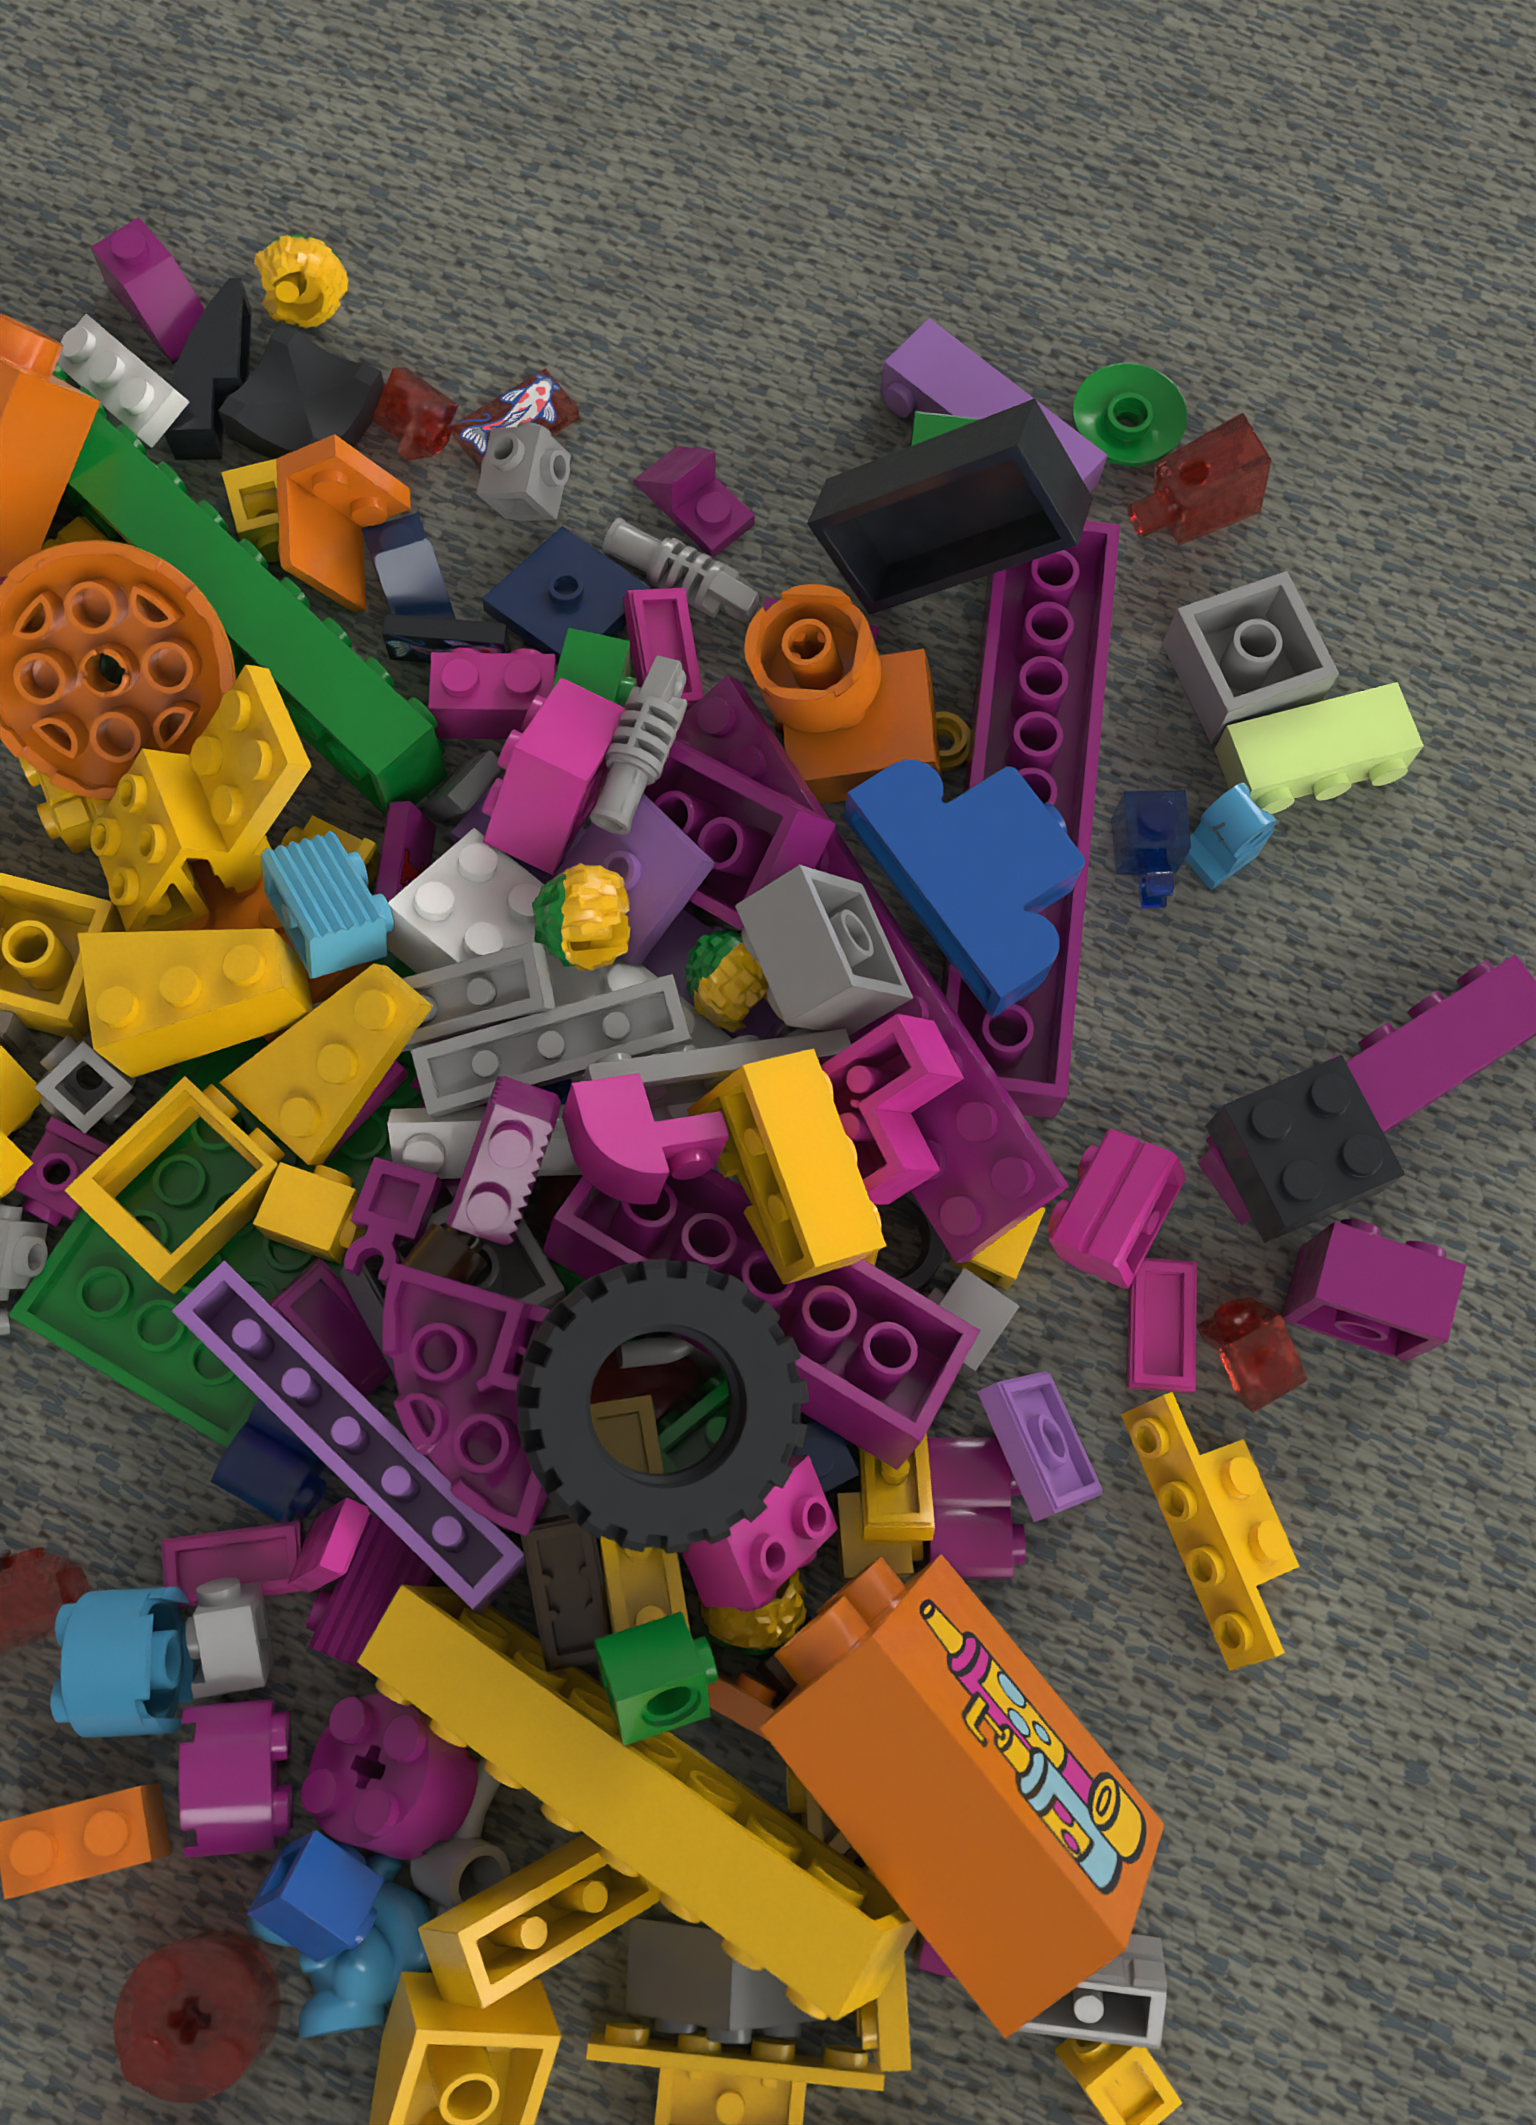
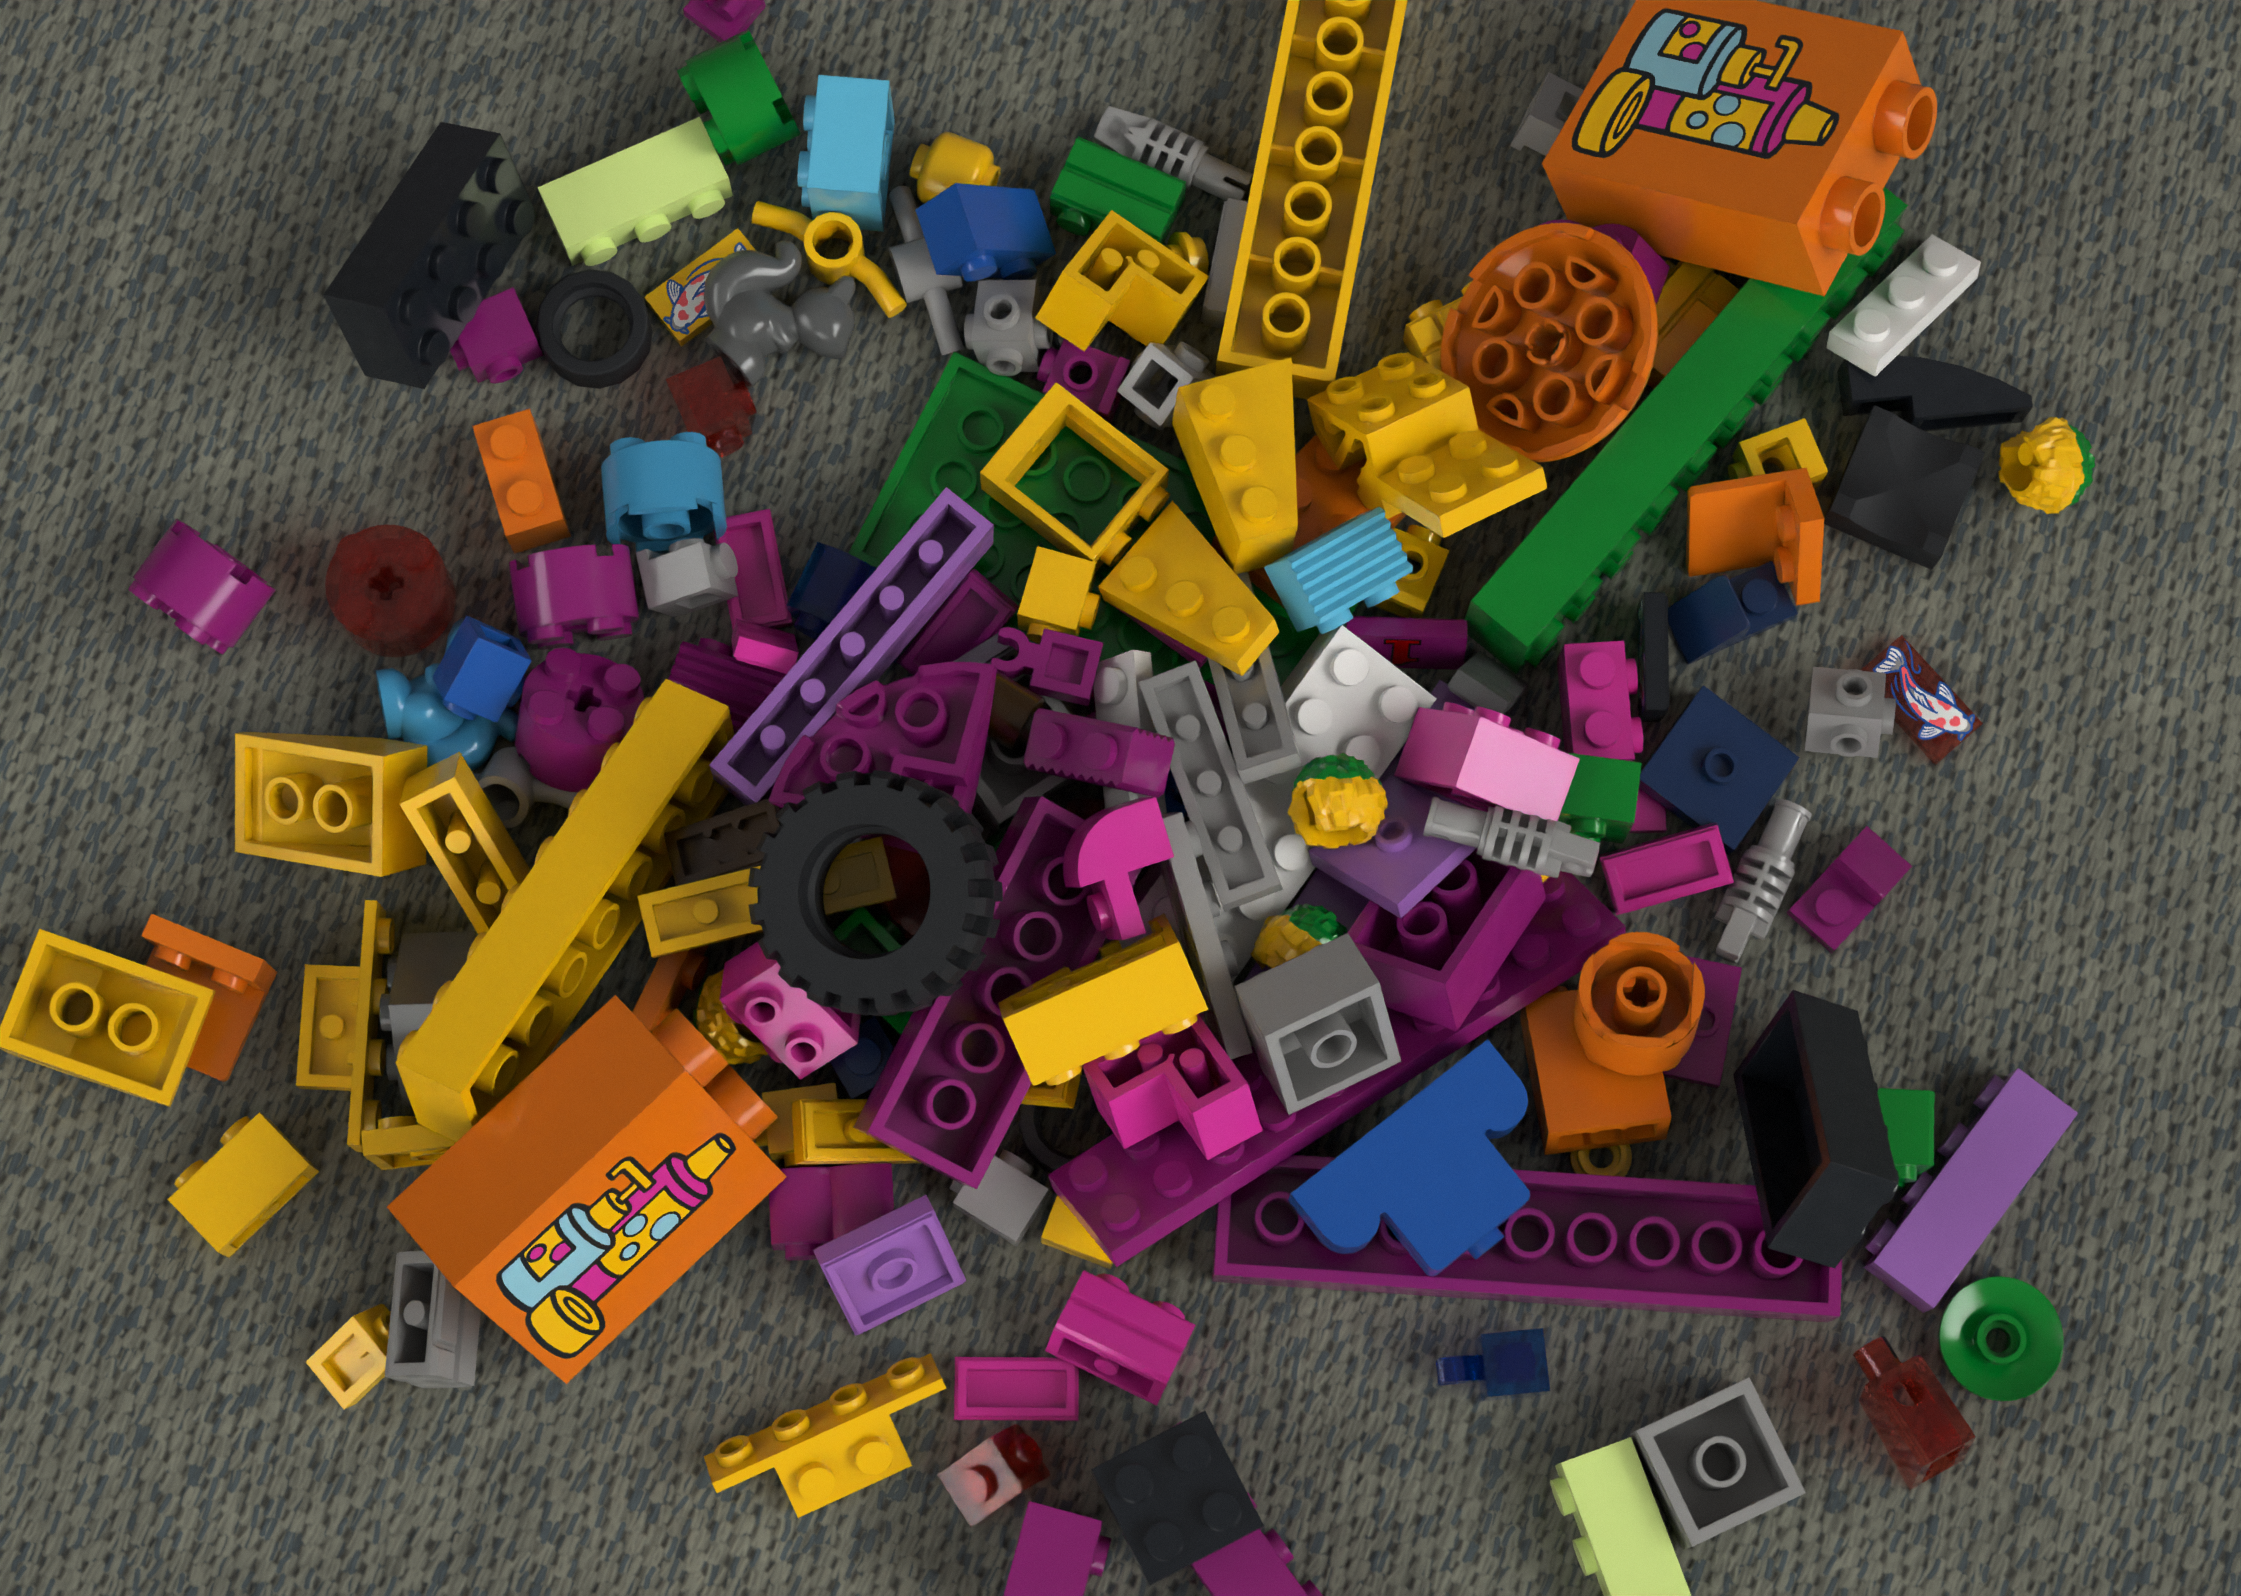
camera: 90 degrees right, 5 degrees up
(149, 286) = (2018, 322): magenta slope -> none
(415, 414) = (1906, 599): clear red bracket -> none
(655, 1677) = (654, 911): green brick -> none
(1229, 836) = (1511, 1441): dark azure leg -> none

